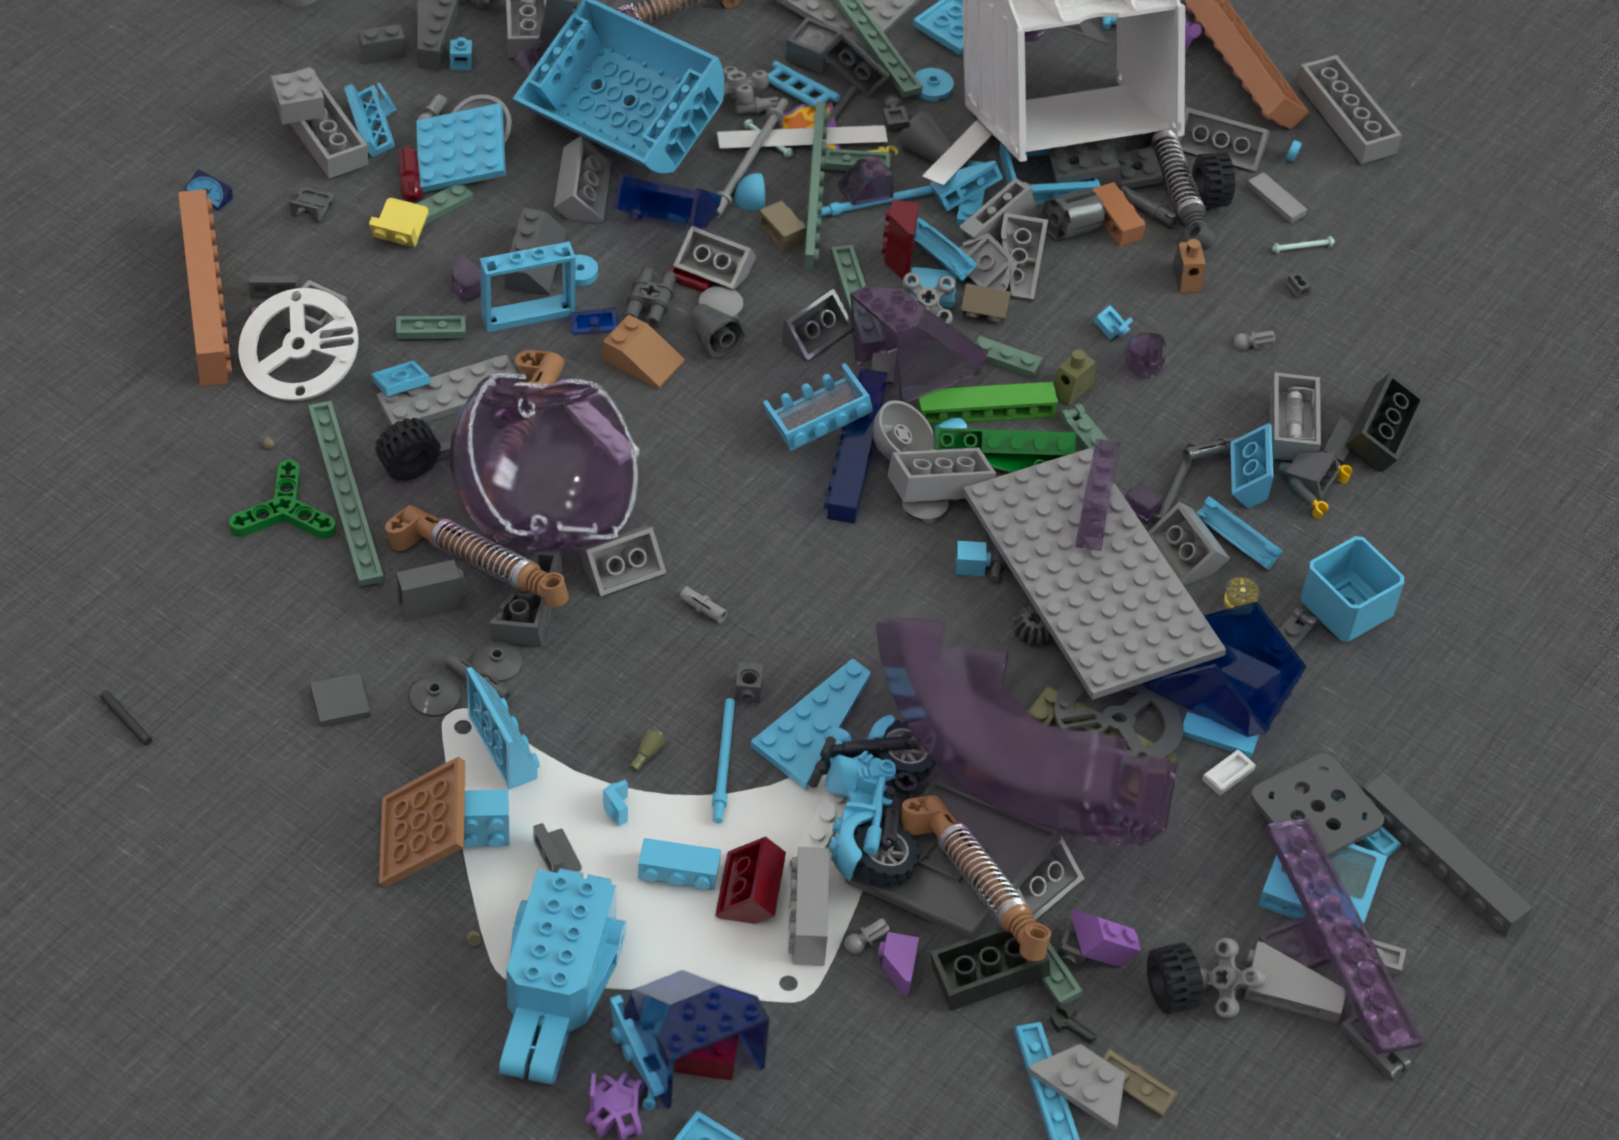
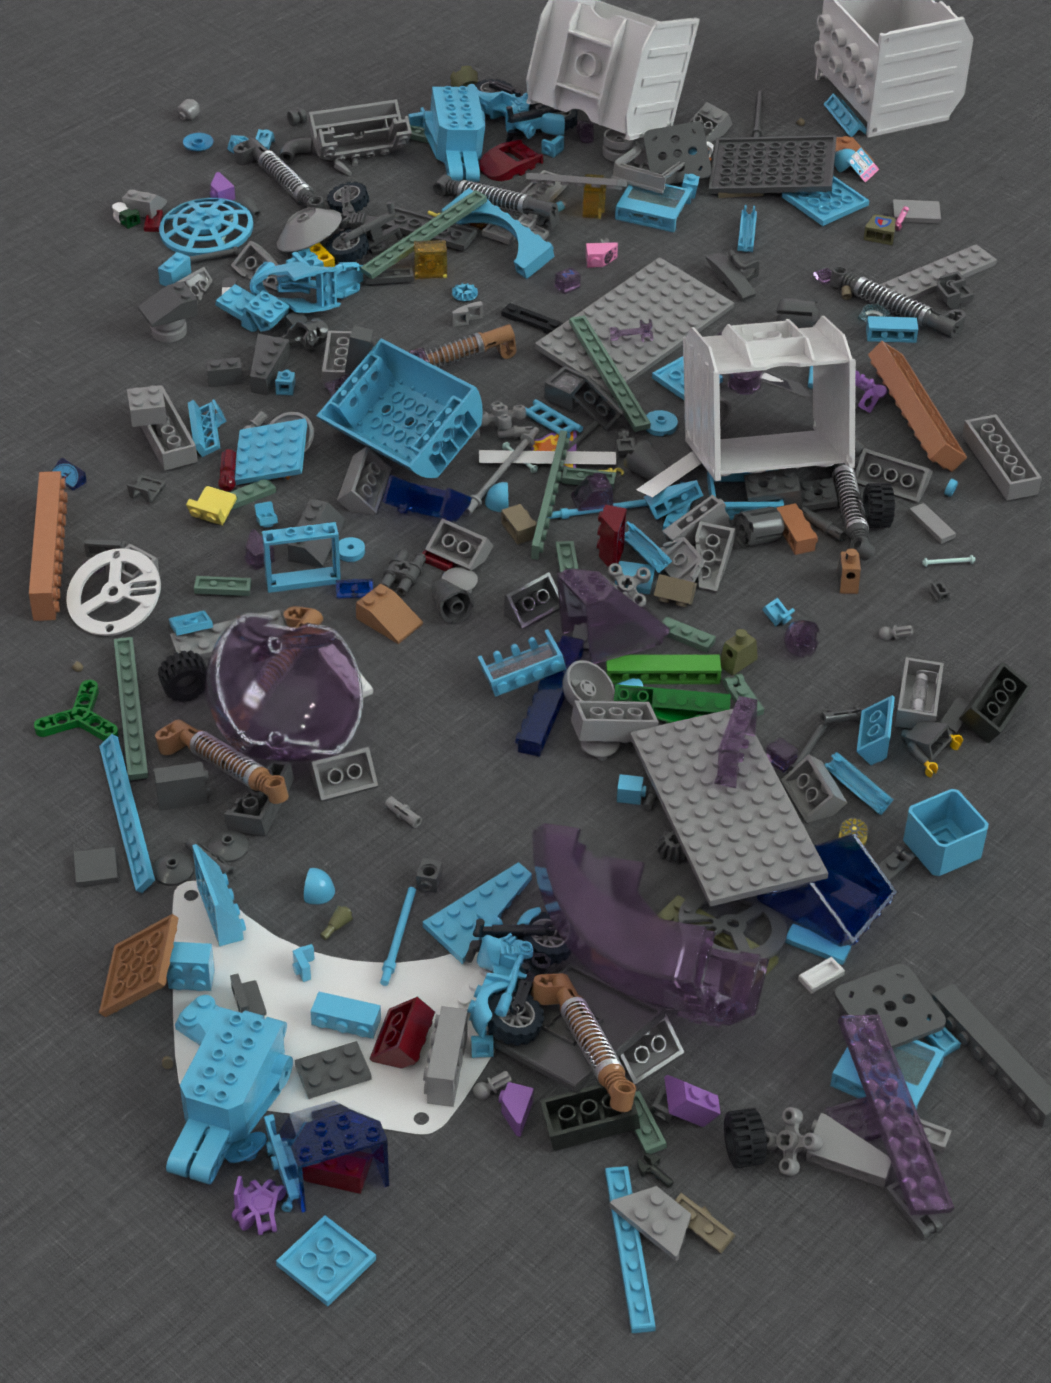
camera: 10 degrees right, 5 degrees down
(367, 629) = (127, 814): none -> medium azure plate
(467, 231) = (265, 514): none -> medium azure bracket
(506, 883) = (197, 1018): none -> medium azure slope
(589, 1036) = (247, 1148): none -> dark azure dish
(618, 707) = (318, 887): none -> medium azure helmet
(674, 932) = (332, 1069): none -> dark grey plate
(848, 891) = (482, 1046): none -> medium azure plate

